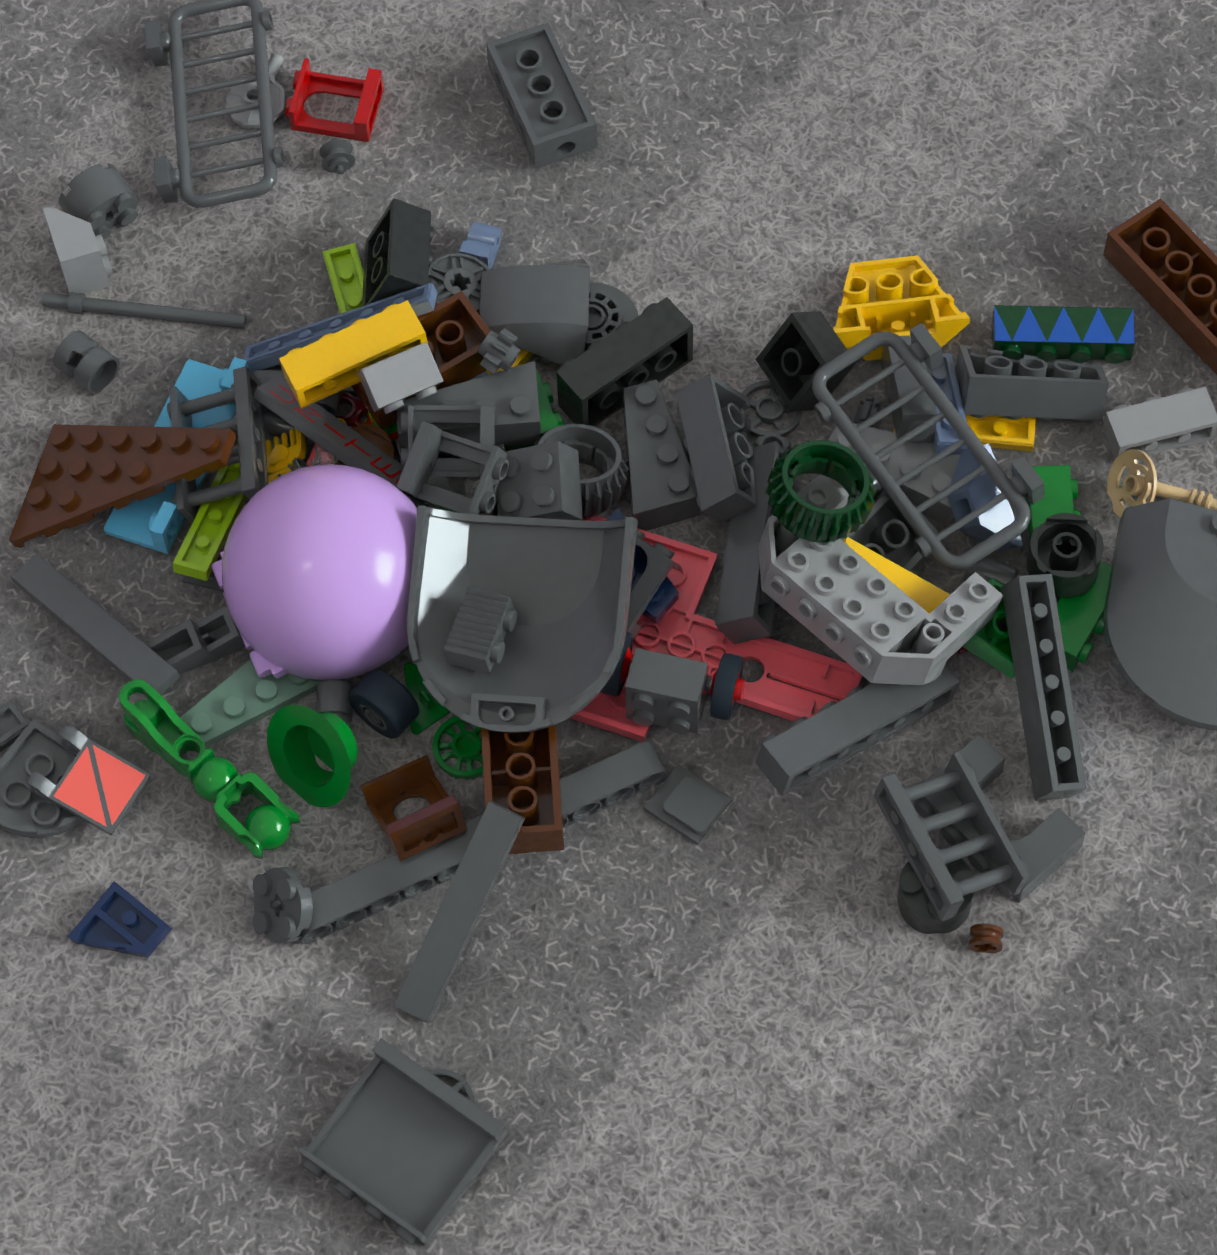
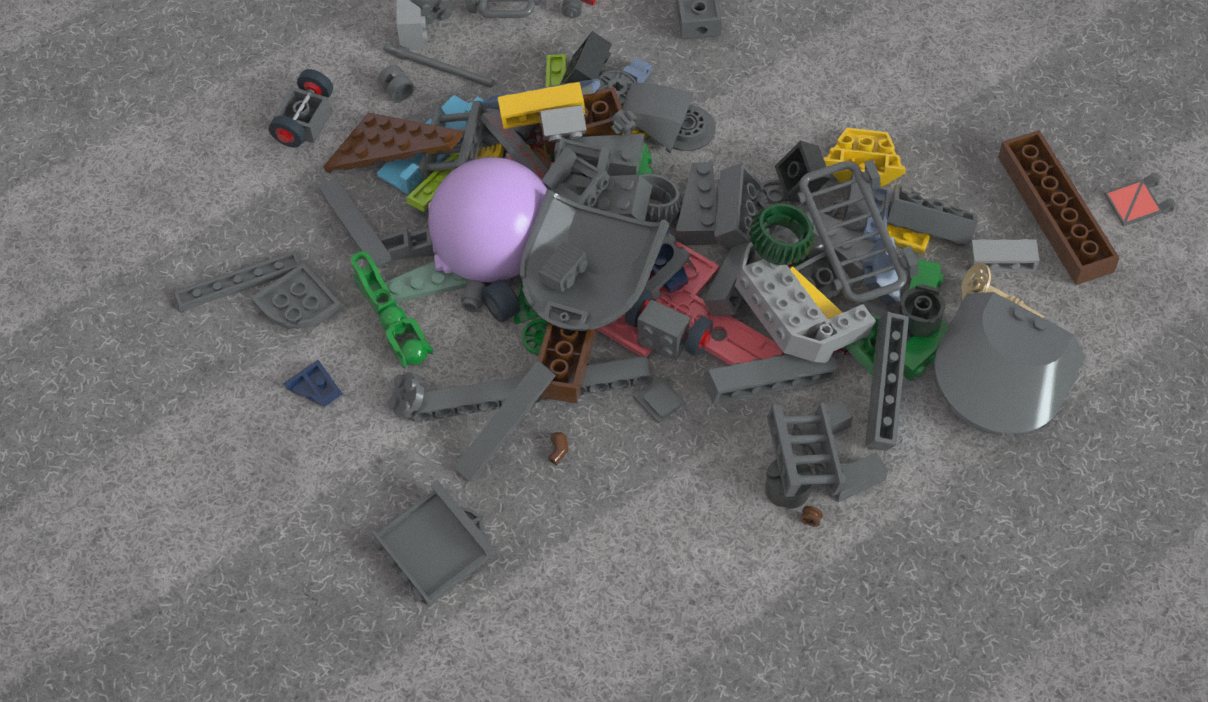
camera: 15 degrees right, 5 degrees down
(95, 785) = (325, 306): flag -> none
(294, 740) = (445, 309): green hose -> none
(422, 828) = (491, 371): reddish brown panel -> none
(557, 927) = (561, 447): none -> reddish brown arm
(635, 353) = (709, 143): pearl dark grey brick -> none
(1064, 333) = (961, 192): dark green brick -> none

